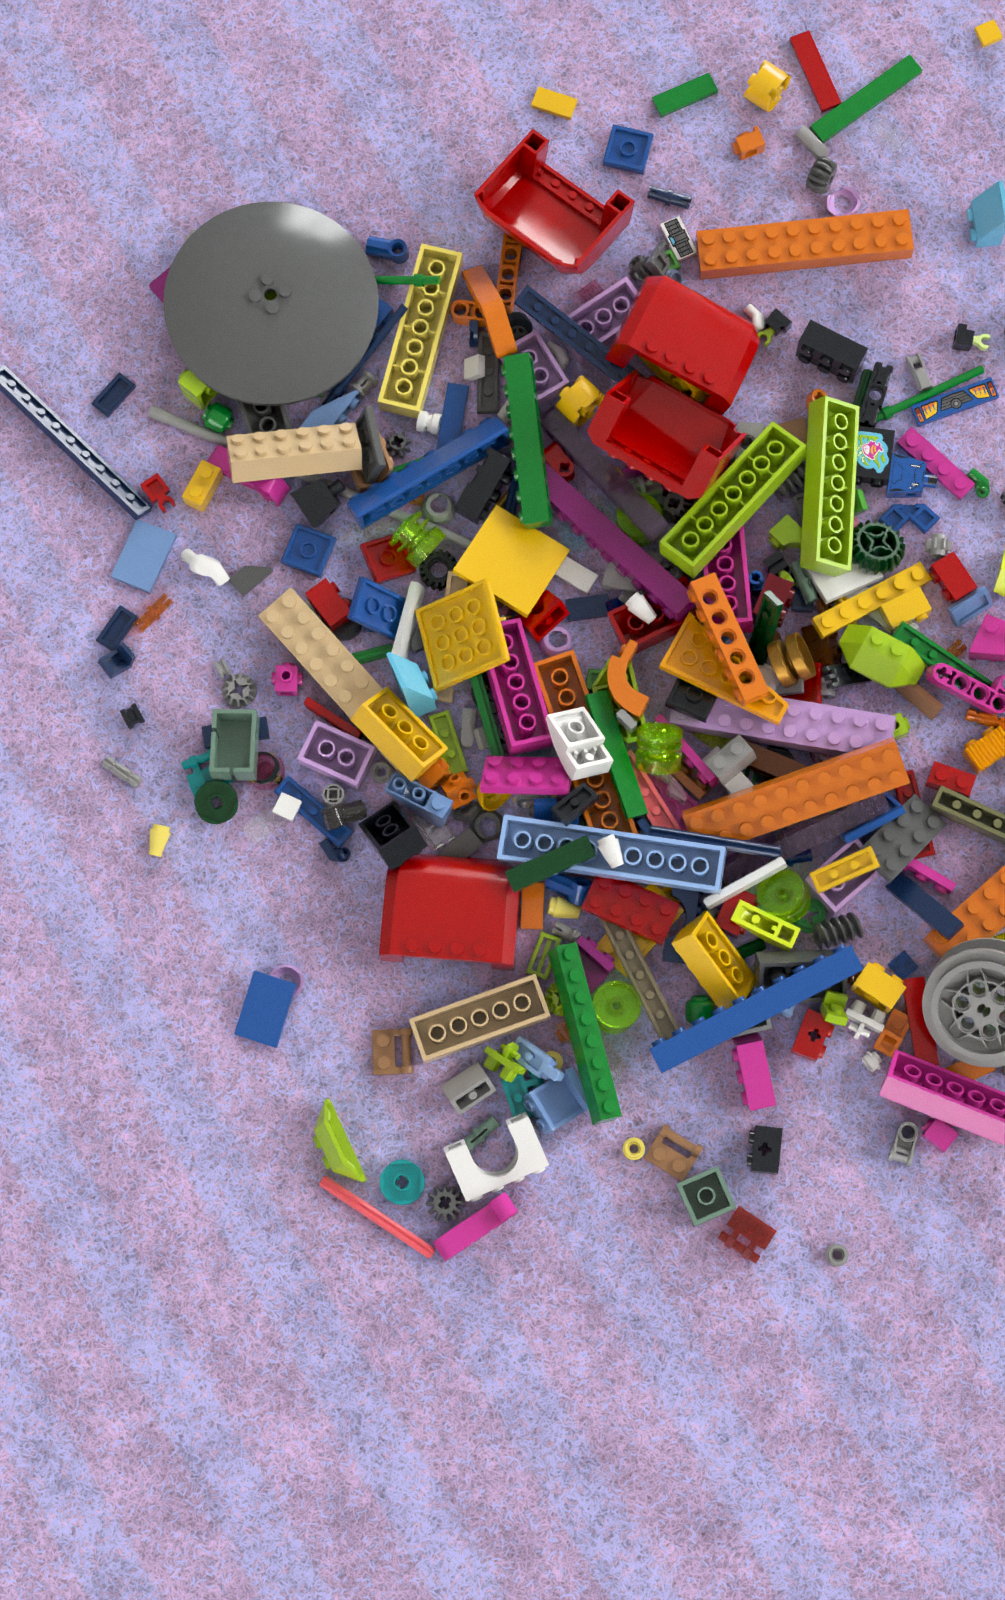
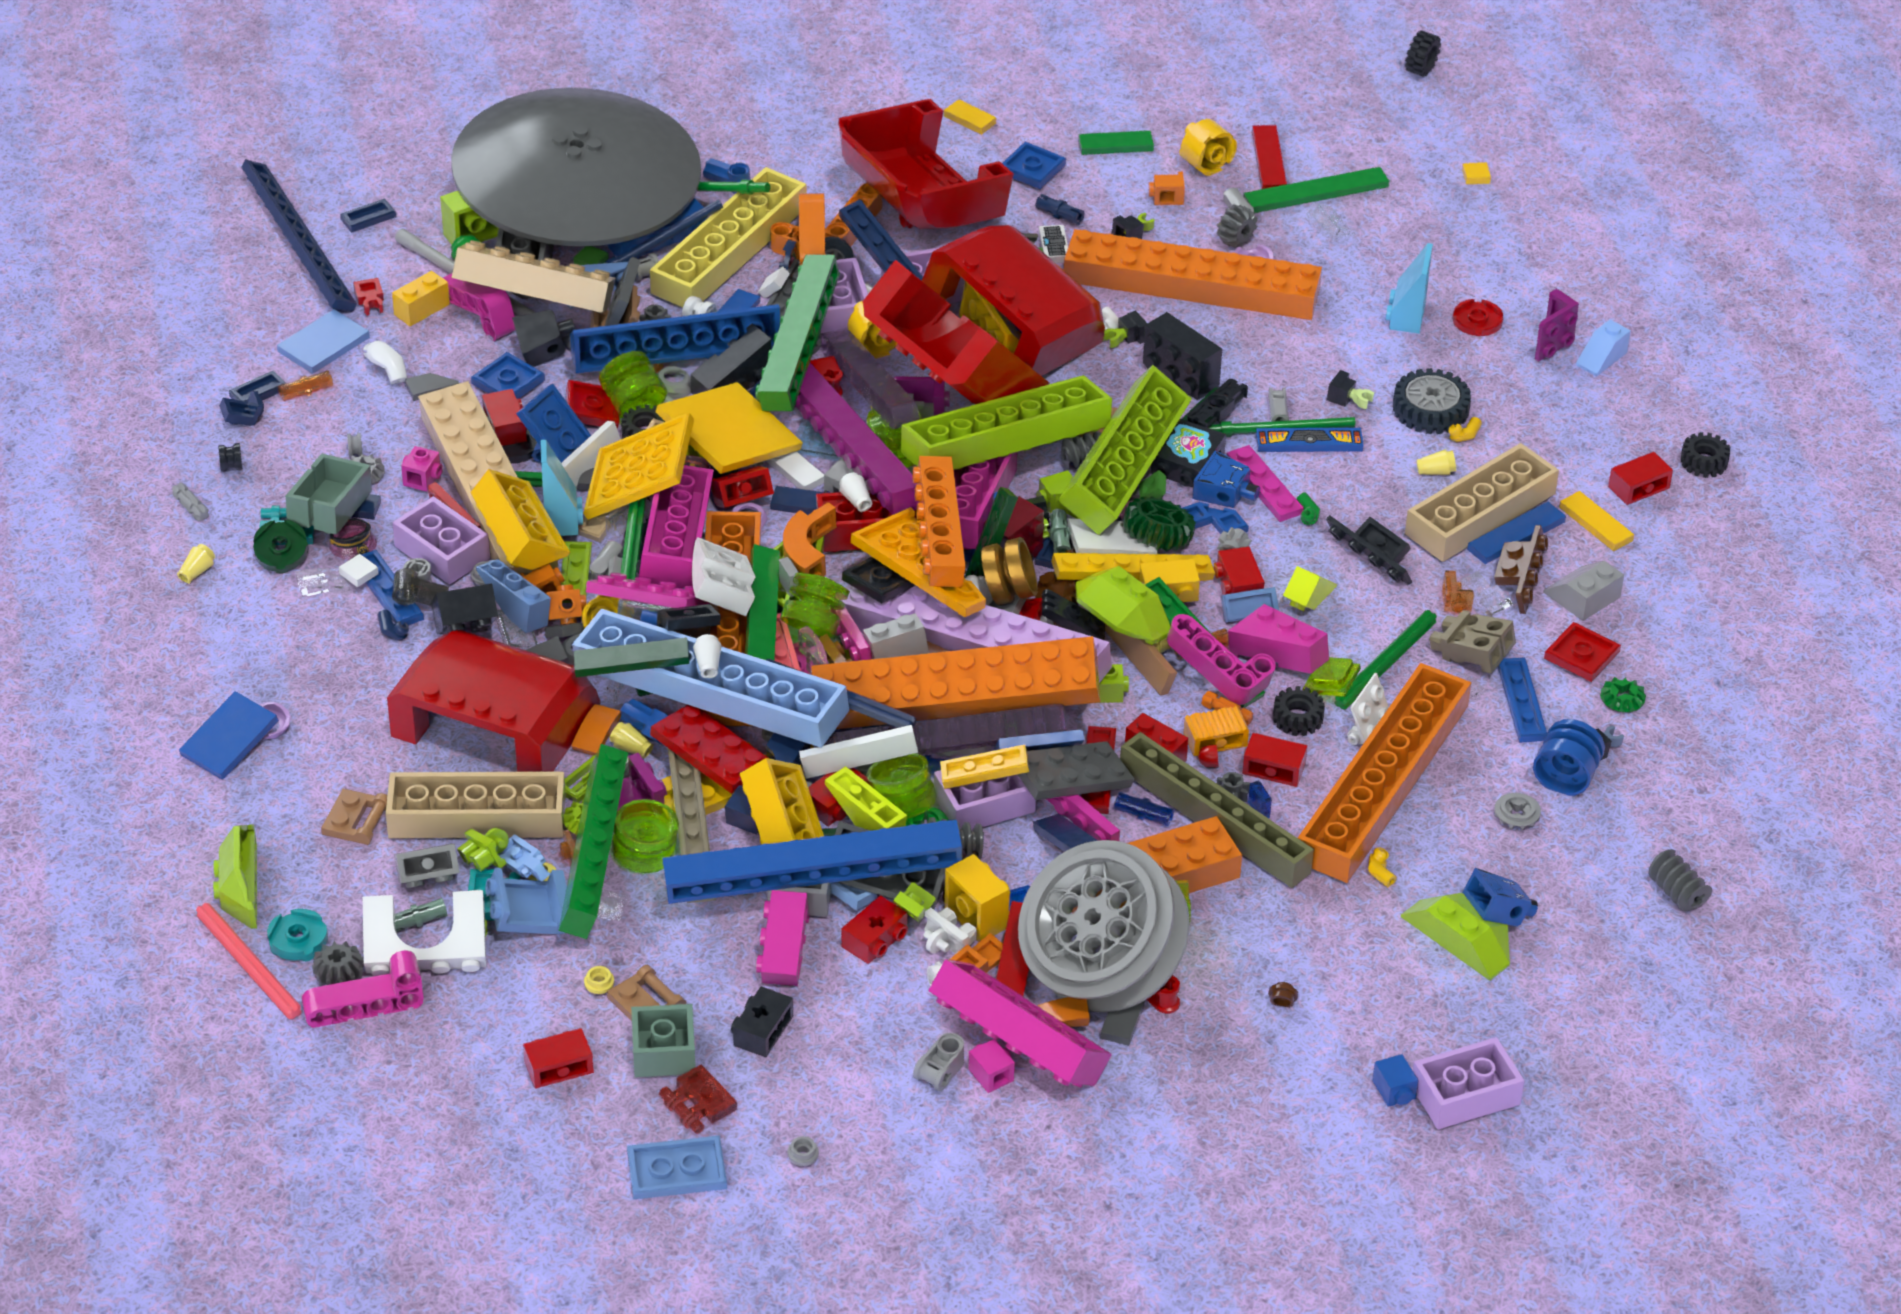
camera: 10 degrees right, 35 degrees down
(636, 1233) = (558, 1058): none -> red brick
(735, 203) = (1131, 226): none -> black piece
(755, 1297) = (676, 1167): none -> medium blue tile
(960, 844) = (1144, 809): none -> clear blue pin
(990, 775) = (1209, 756): none -> red hinge

